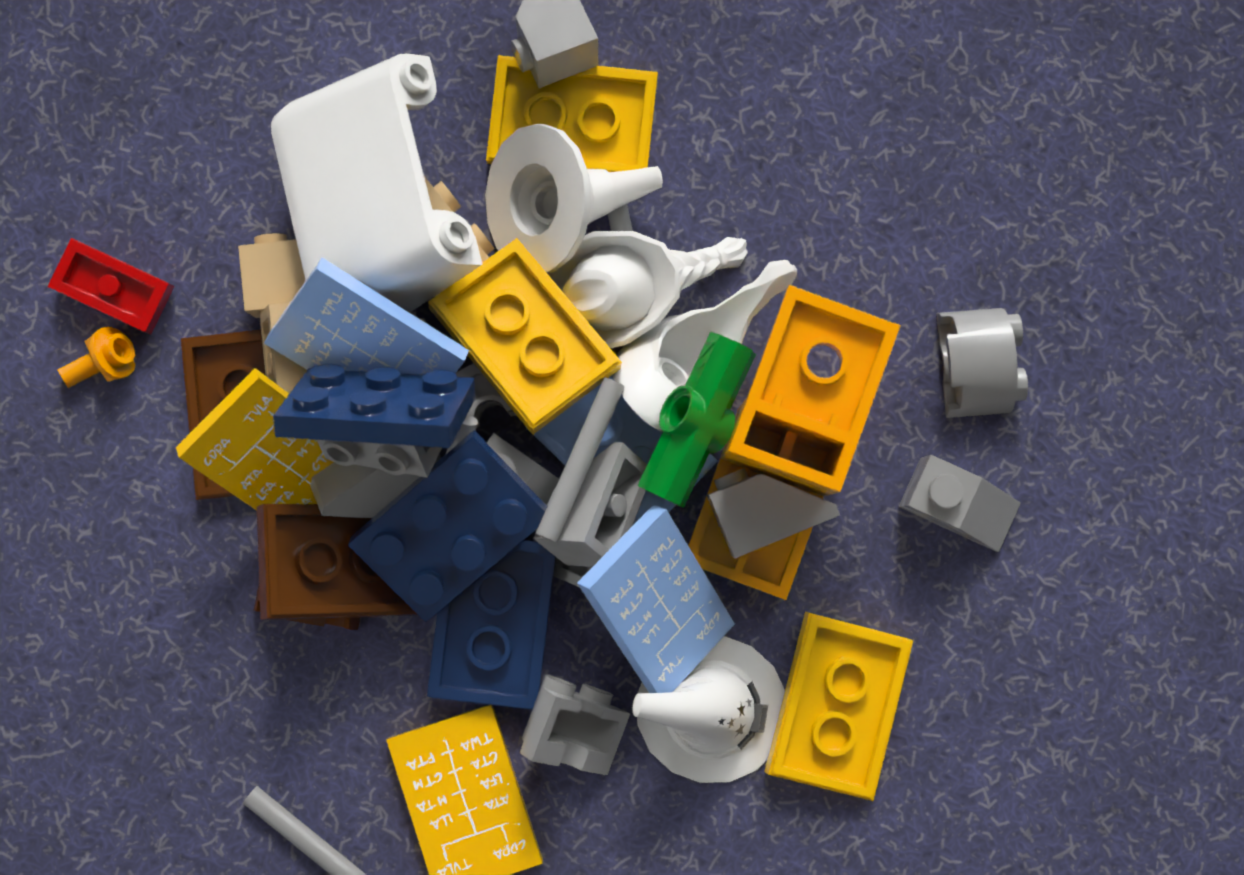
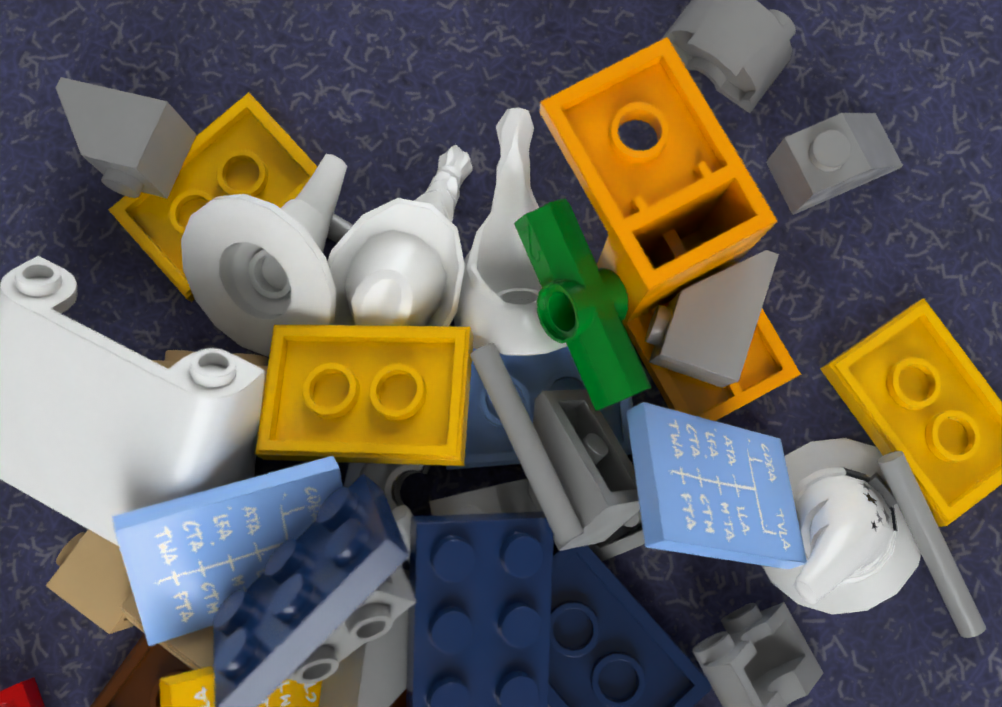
camera: 50 degrees left, 5 degrees down
(749, 775) = (931, 544): none -> light grey bar

